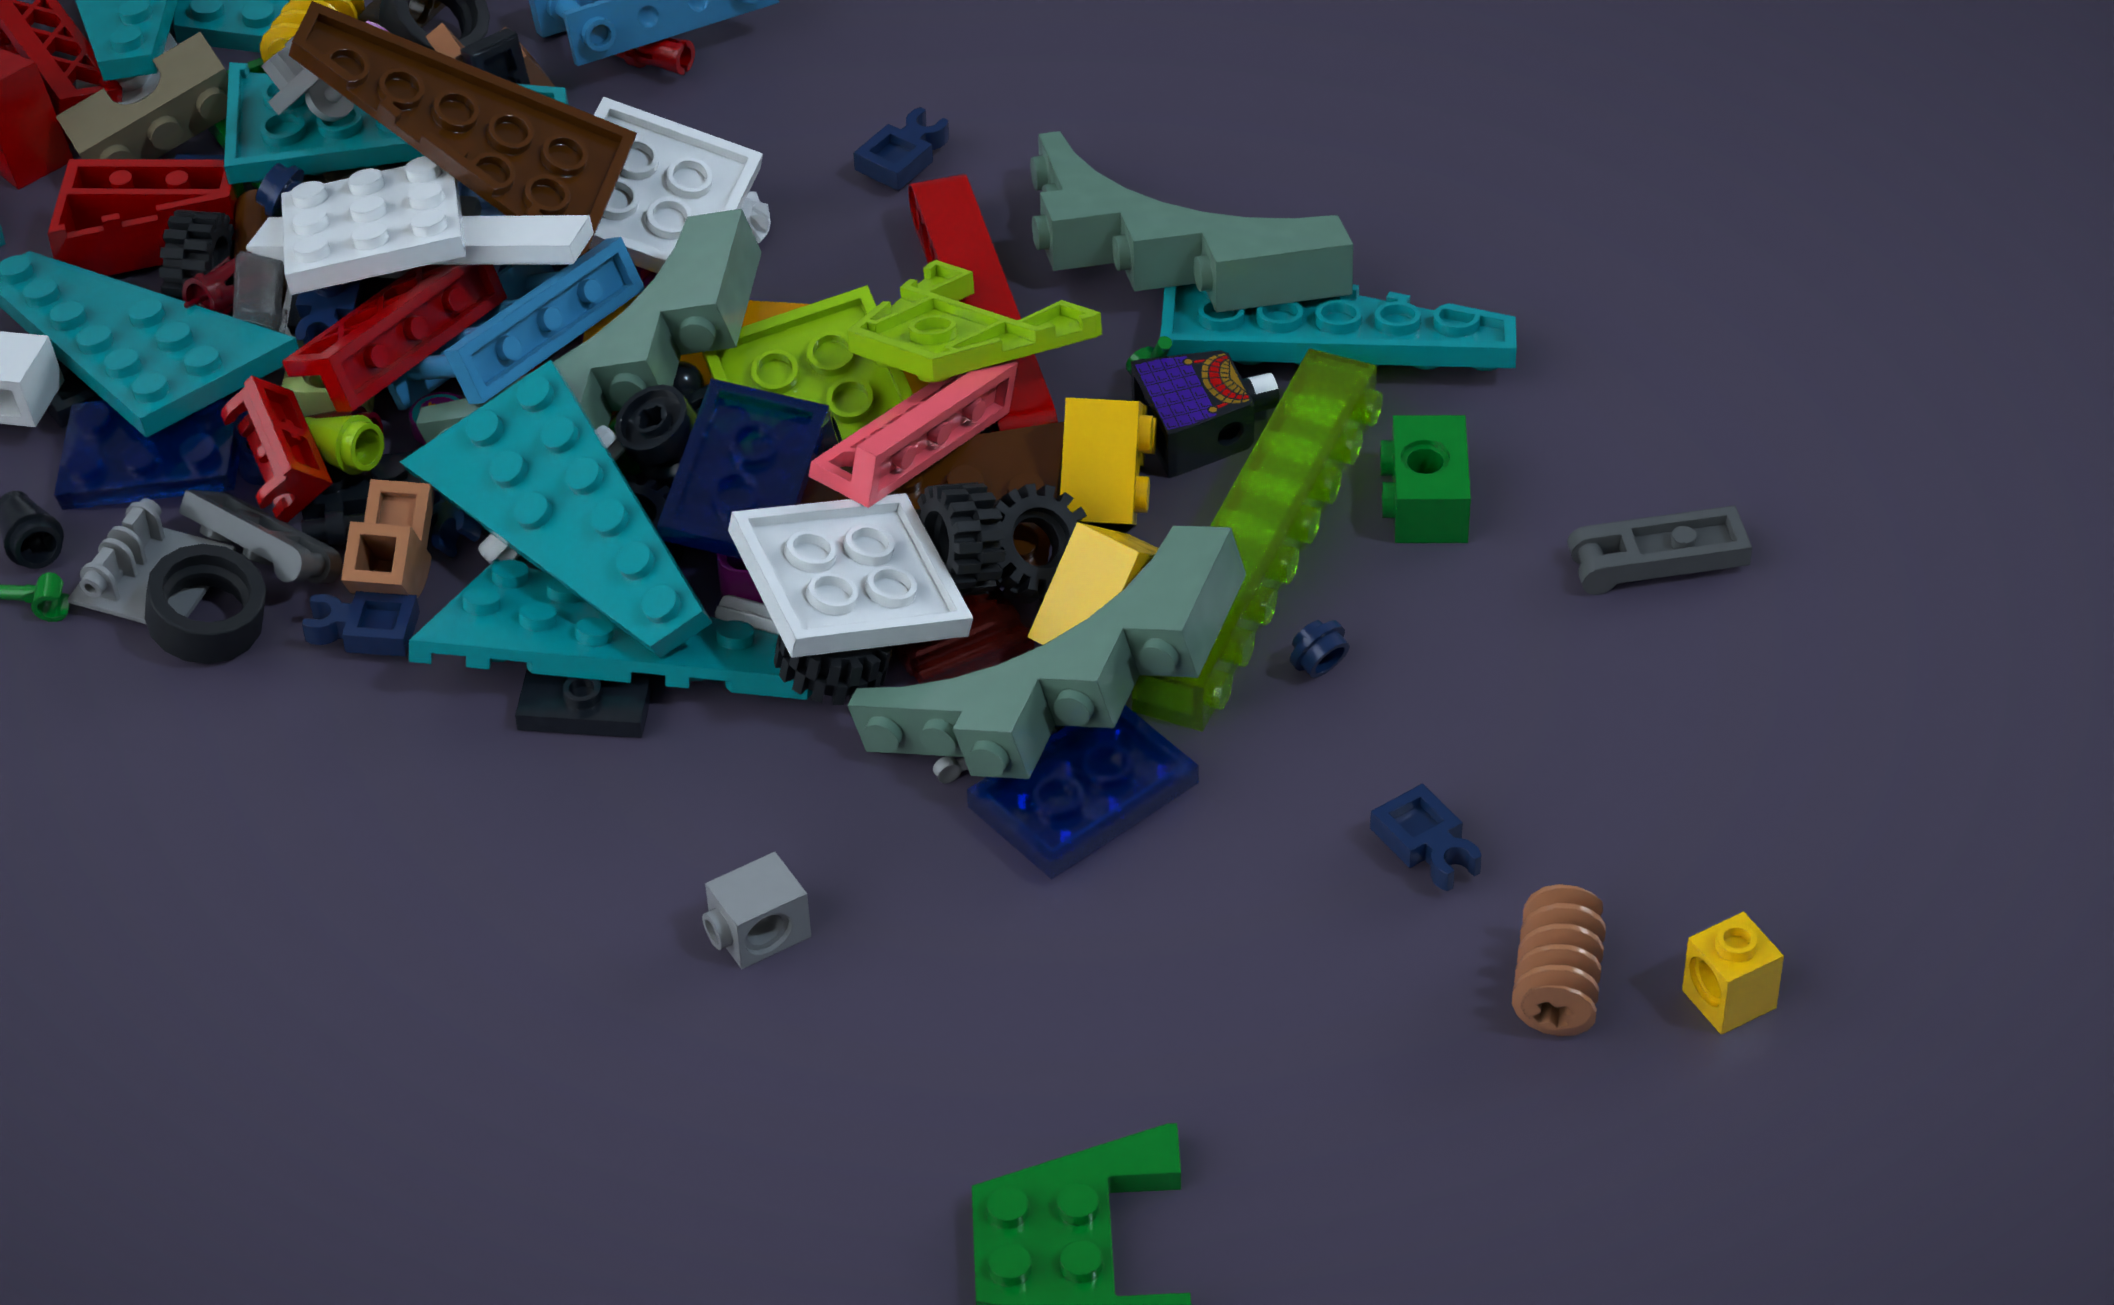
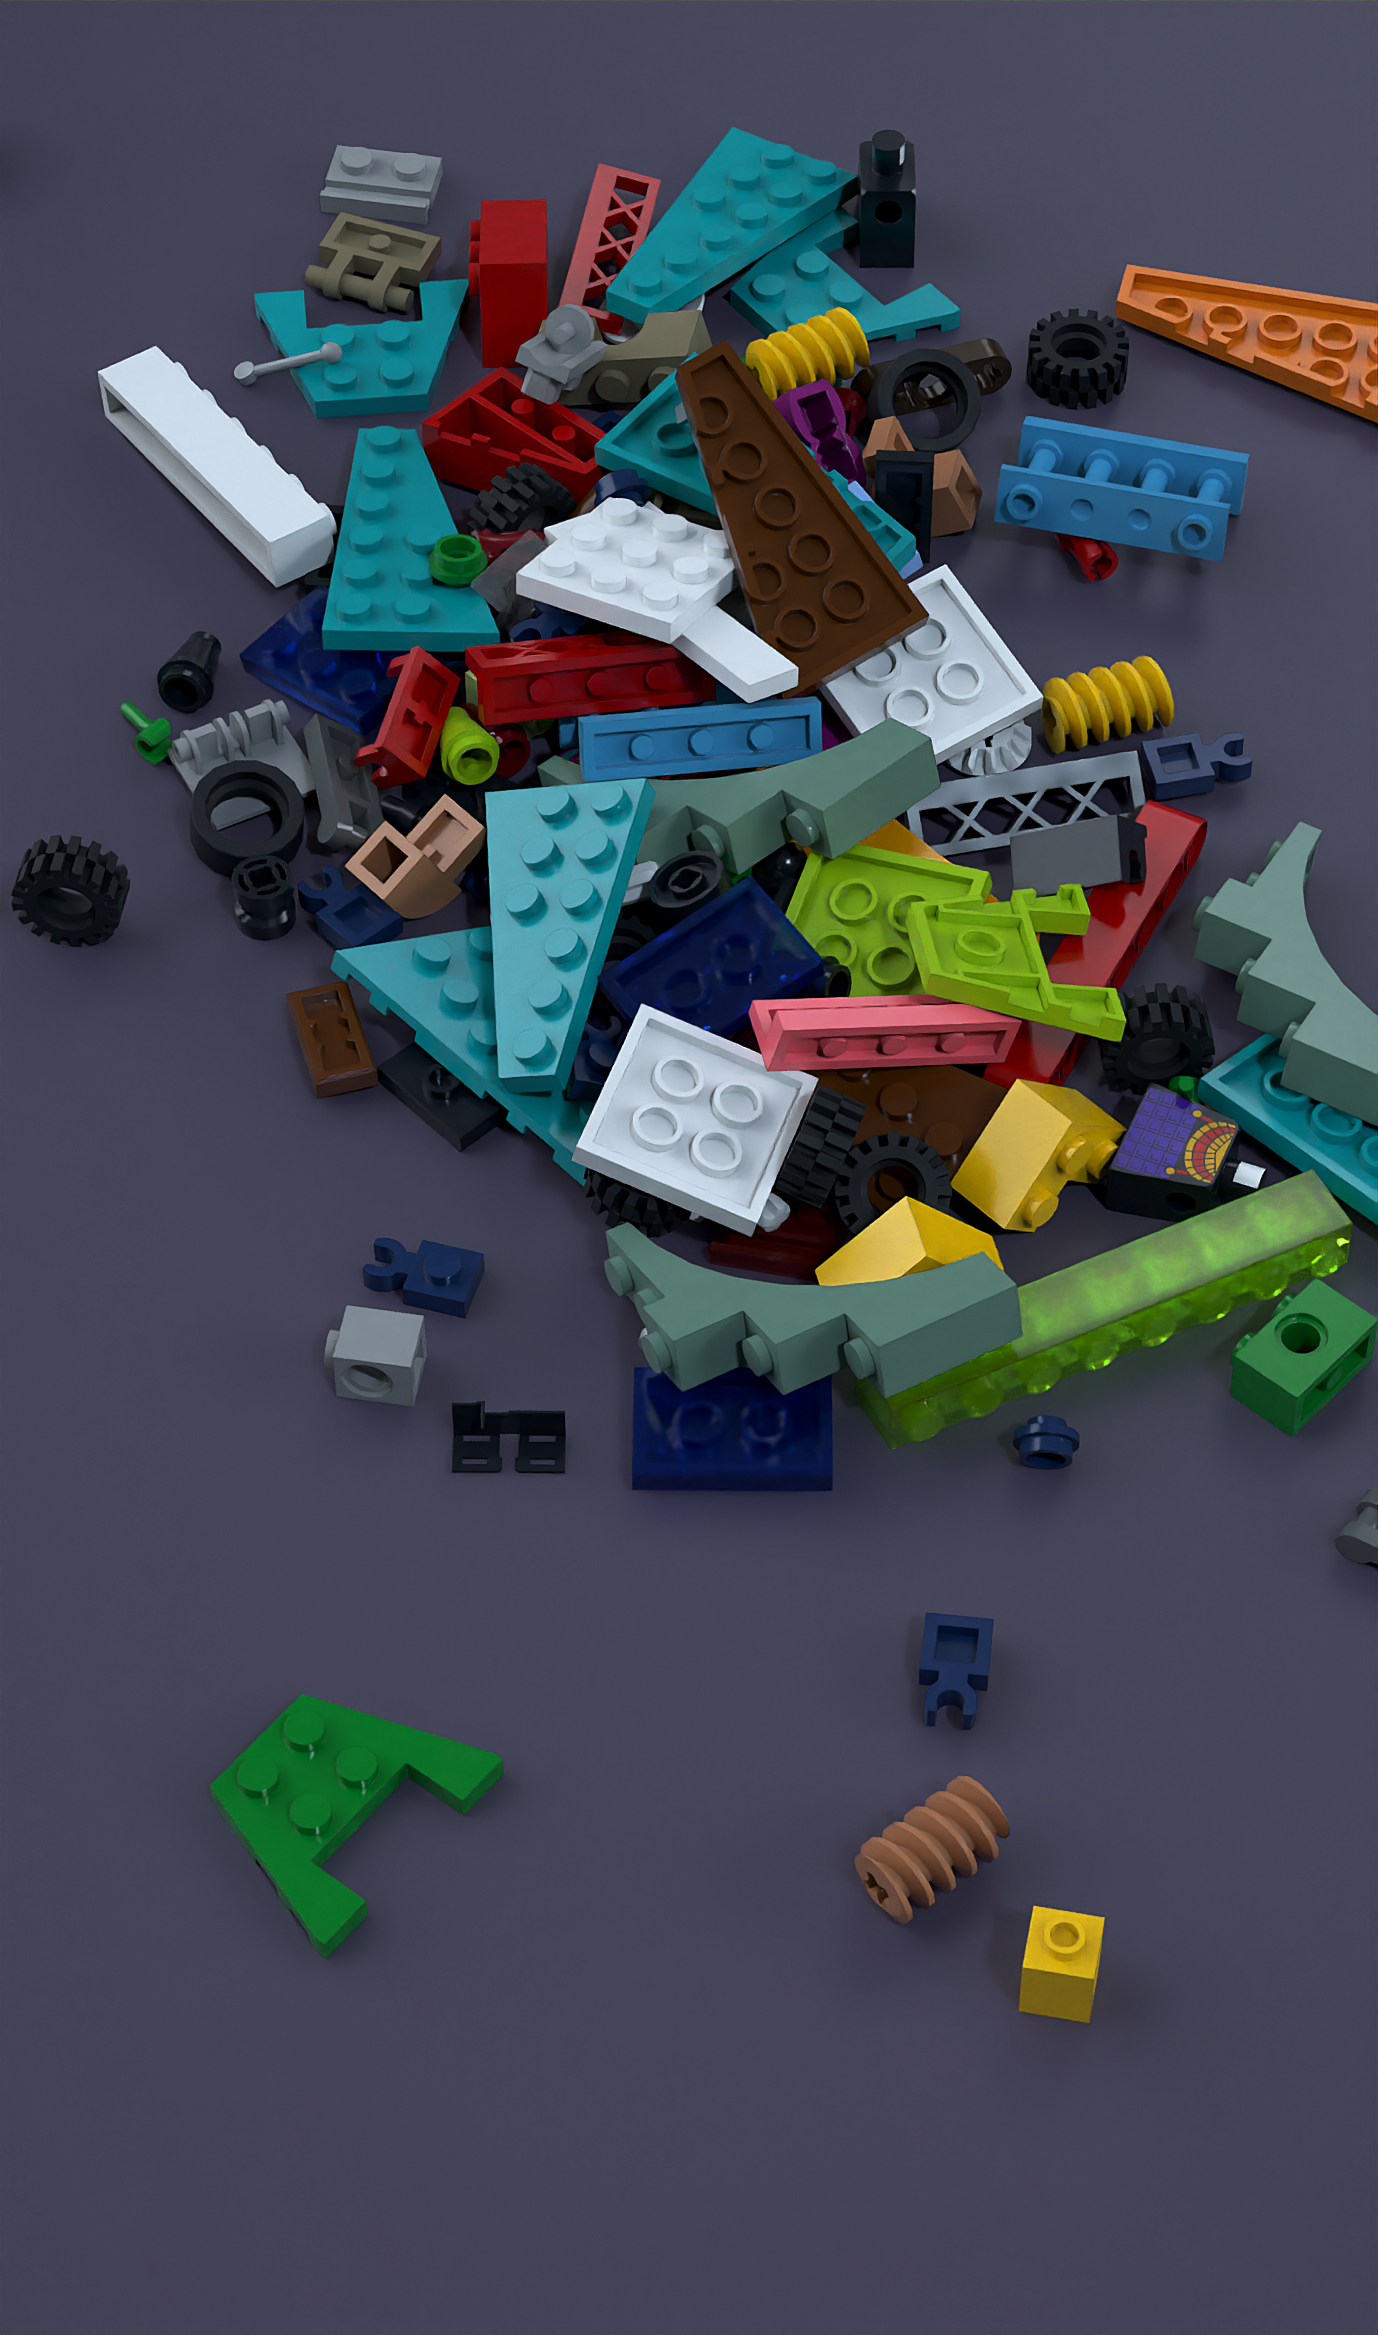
camera: 40 degrees right, 5 degrees up
(103, 717) = (78, 868): none -> black tyre
(122, 114) = (560, 354): none -> light grey hips
(203, 305) = (457, 560): none -> green plate
(282, 650) = (264, 897): none -> black wheel
(454, 718) = (332, 1039): none -> reddish brown plate
(720, 598) = (594, 1060): none -> dark blue plate
(724, 831) = (433, 1279): none -> dark blue plate
(801, 142) = (1105, 699): none -> yellow piece
(811, 219) = (1026, 781): none -> fence
(890, 902) = (472, 1420): none -> black piece
(906, 244) = (1081, 853): none -> black hinge
(1124, 325) = (1184, 1045): none -> black tyre

